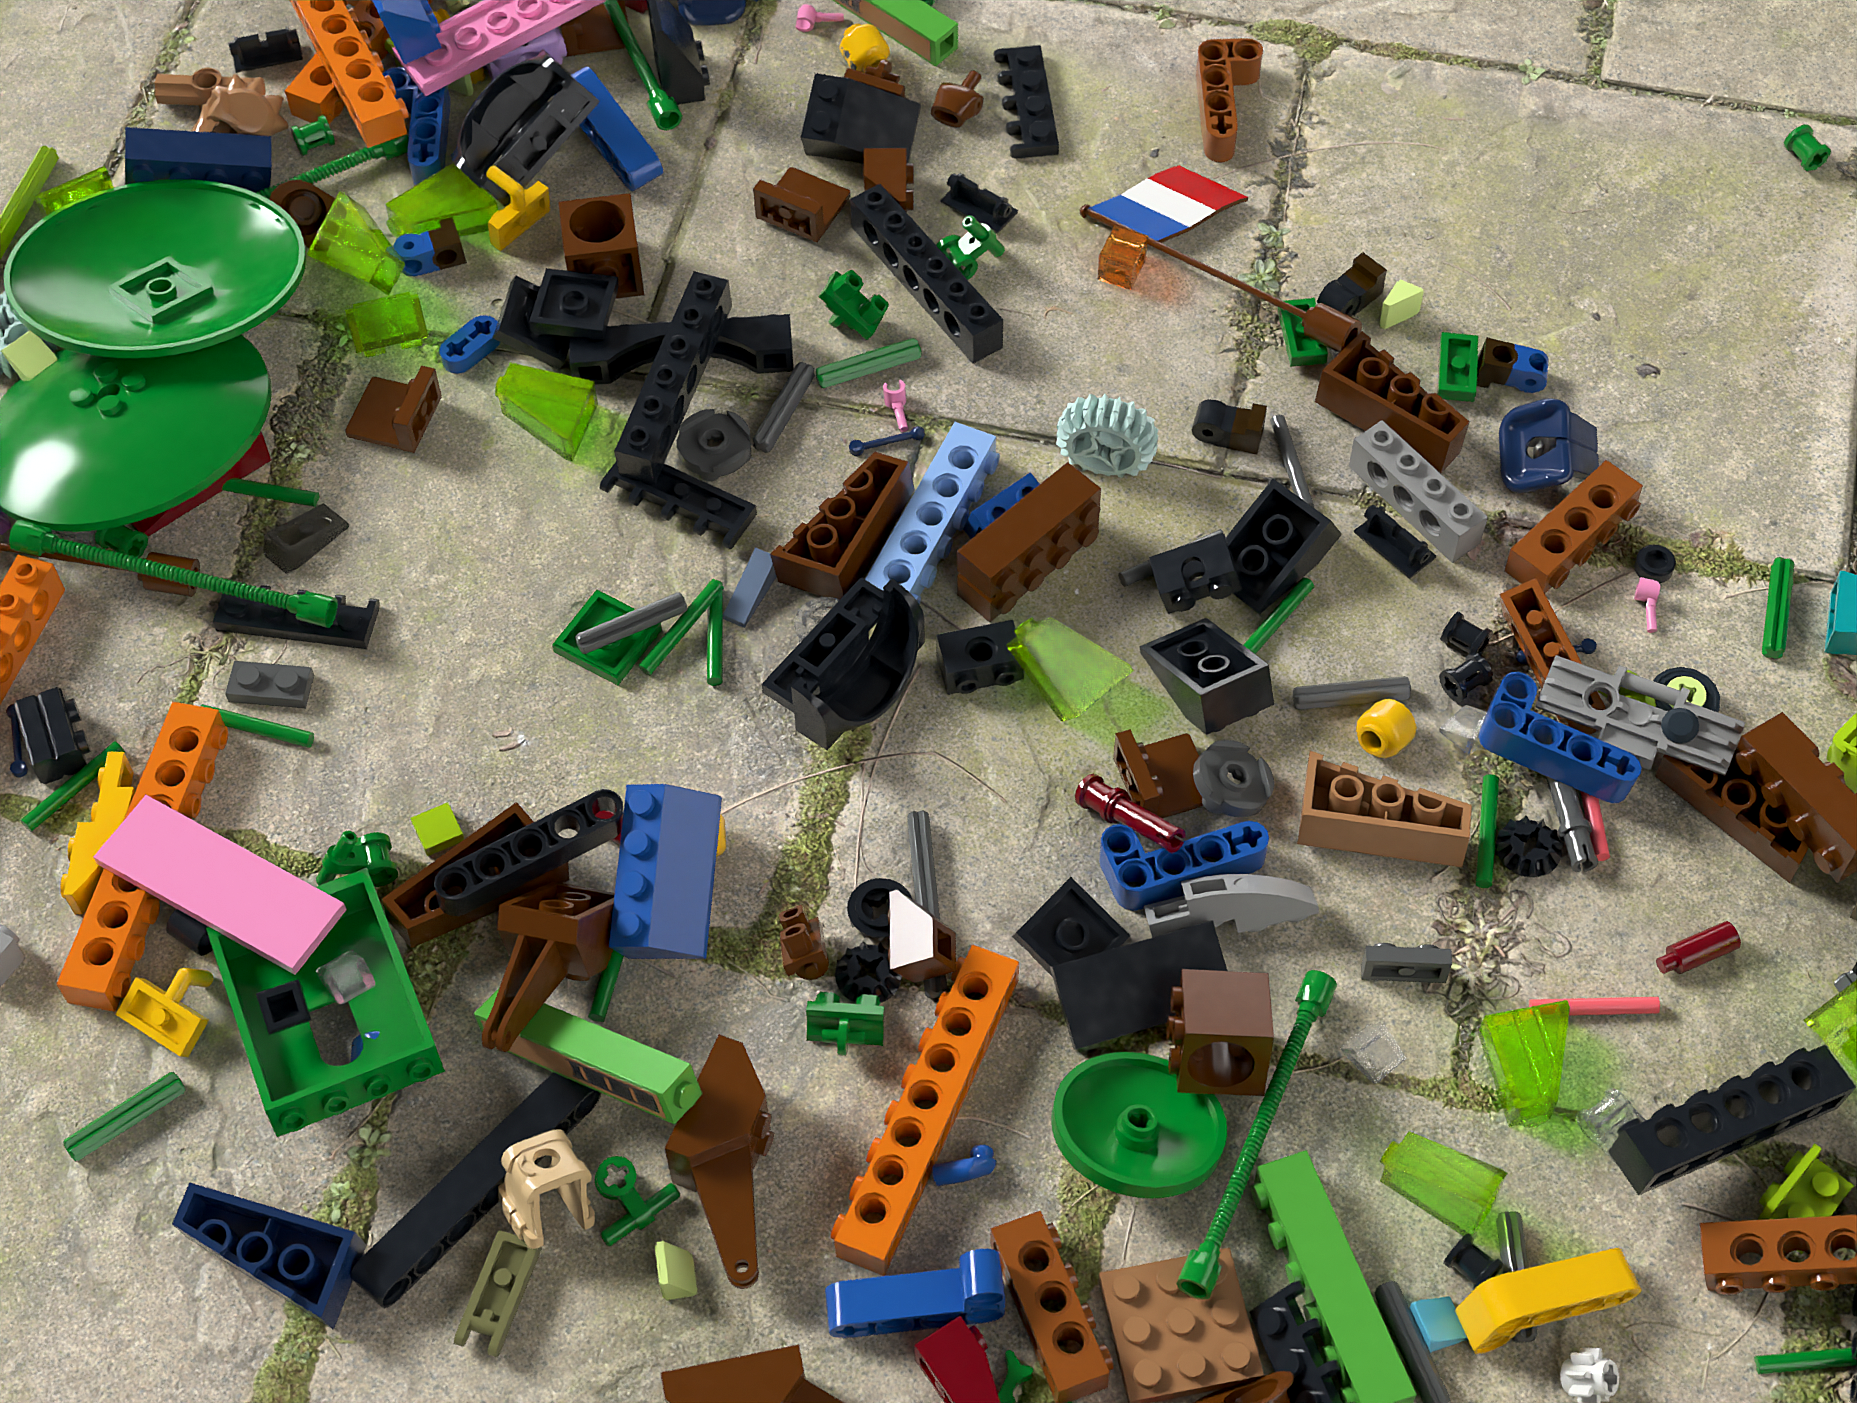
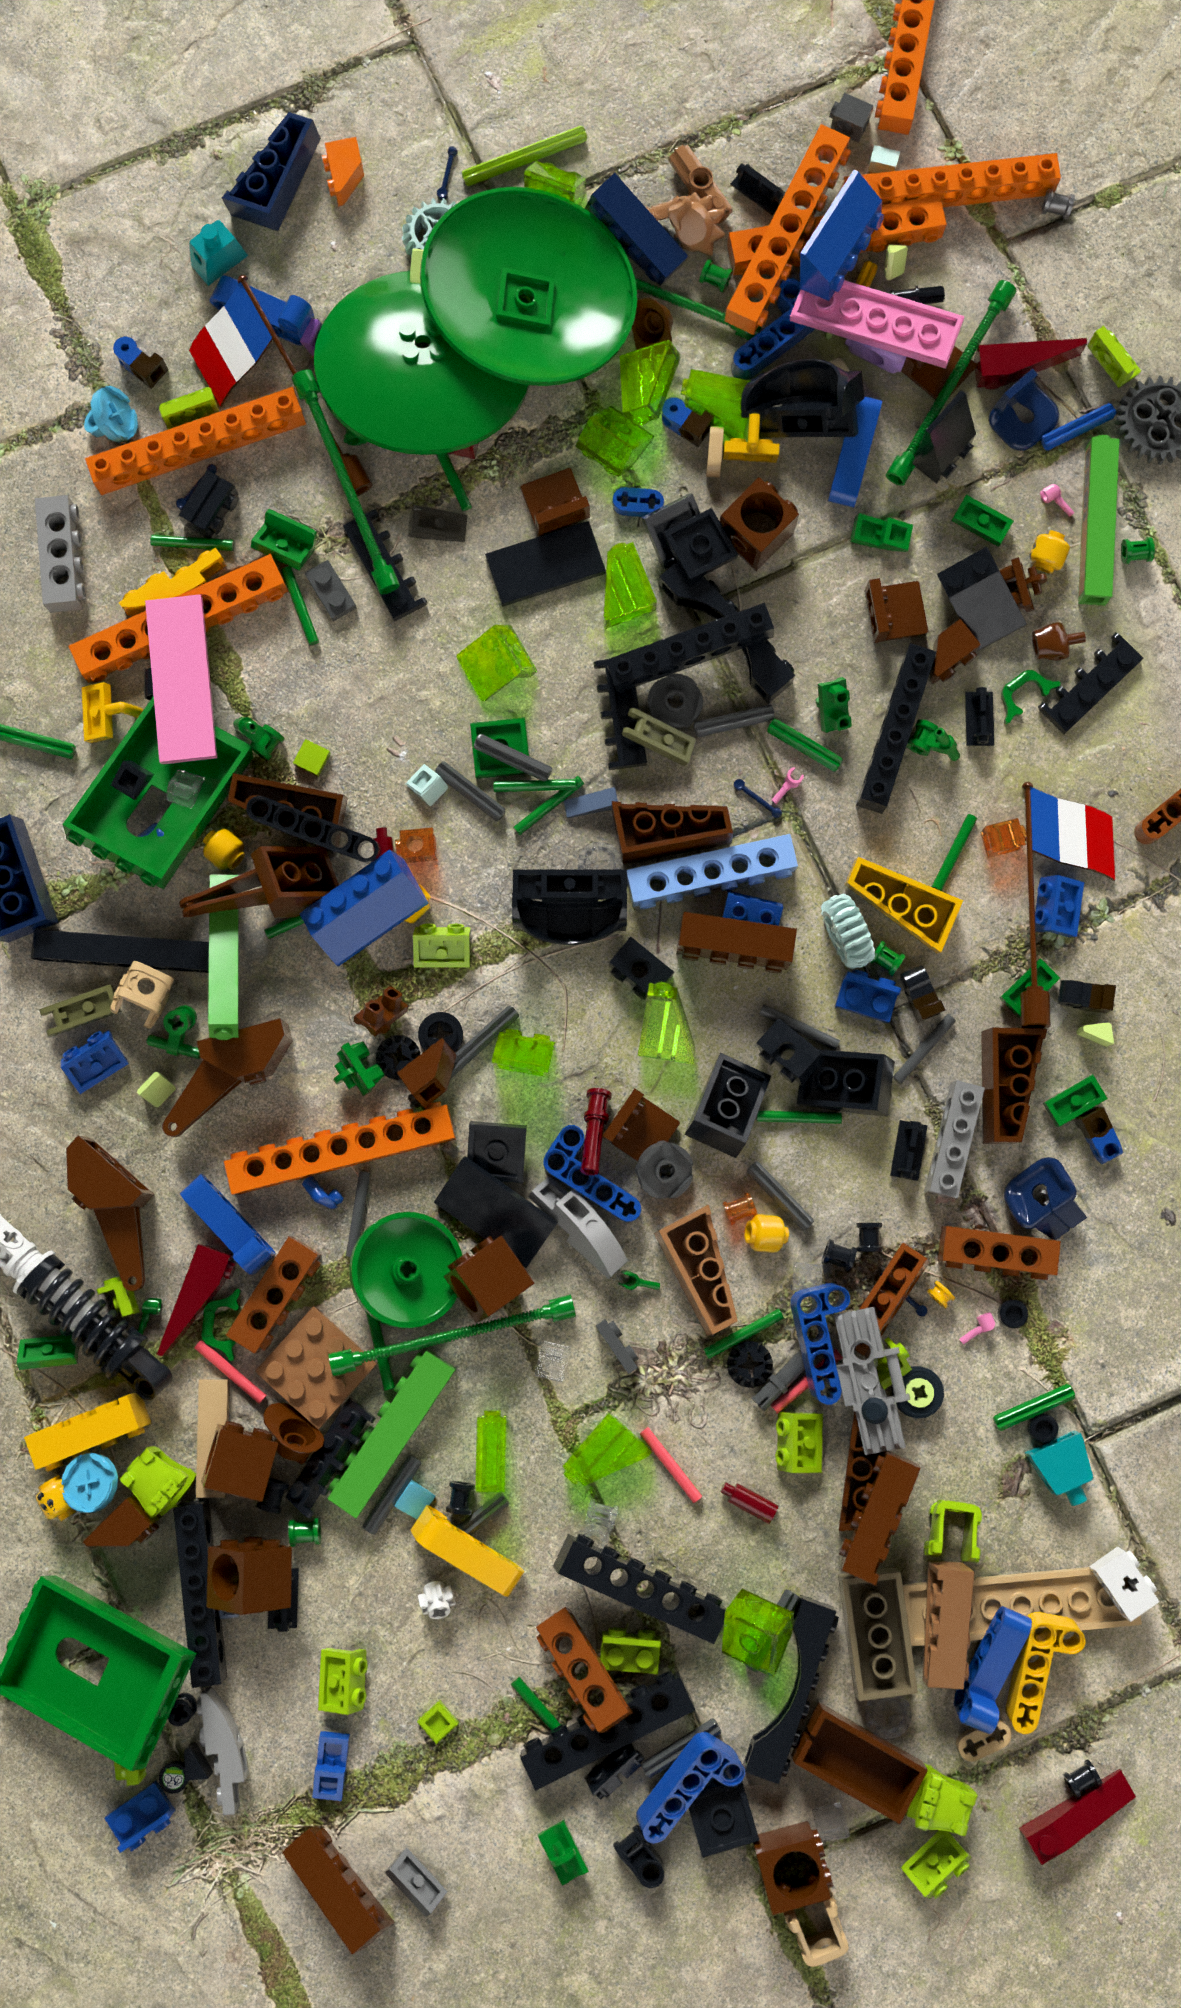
camera: 50 degrees right, 25 degrees up
(168, 678) = (285, 540): none -> green bracket
(449, 466) = (545, 563): none -> black tile
(455, 987) = (223, 849): none -> yellow head
(488, 245) = (714, 454): none -> tan beam
(507, 578) = (495, 661): none -> clear neon green bracket
(574, 1321) = (93, 1061): none -> blue bracket
(579, 734) = (427, 785): none -> light aqua slope
(627, 695) = (470, 791): none -> dark grey axle
(640, 768) = (427, 852): none -> clear orange brick
(715, 167) = (881, 534): none -> green slope
(740, 473) = (660, 737): none -> olive hinge
(779, 82) = (982, 520): none -> green plate
(781, 836) = (441, 946): none -> lime bracket
(970, 165) = (1026, 676): none -> green helmet
(981, 831) = (523, 1053): none -> clear neon green slope
(1023, 1147) = (358, 1211): none -> dark grey bar
(1101, 310) = (954, 852): none -> green bar
(1136, 365) = (910, 904): none -> yellow wedge
(1172, 429) = (887, 958): none -> green bush
(1190, 473) = (867, 996): none -> blue bracket
(1199, 1229) = (383, 1364): none -> green bar
(1235, 255) = (1058, 905): none -> blue bracket
(1336, 737) = (739, 1208): none -> clear orange bush
(1340, 898) = (635, 1281): none -> green hand
(1584, 610) = (941, 1294): none -> yellow bush
(1659, 854) = (799, 1442): none -> lime bracket
(1808, 615) = (1042, 1428): none -> black tile

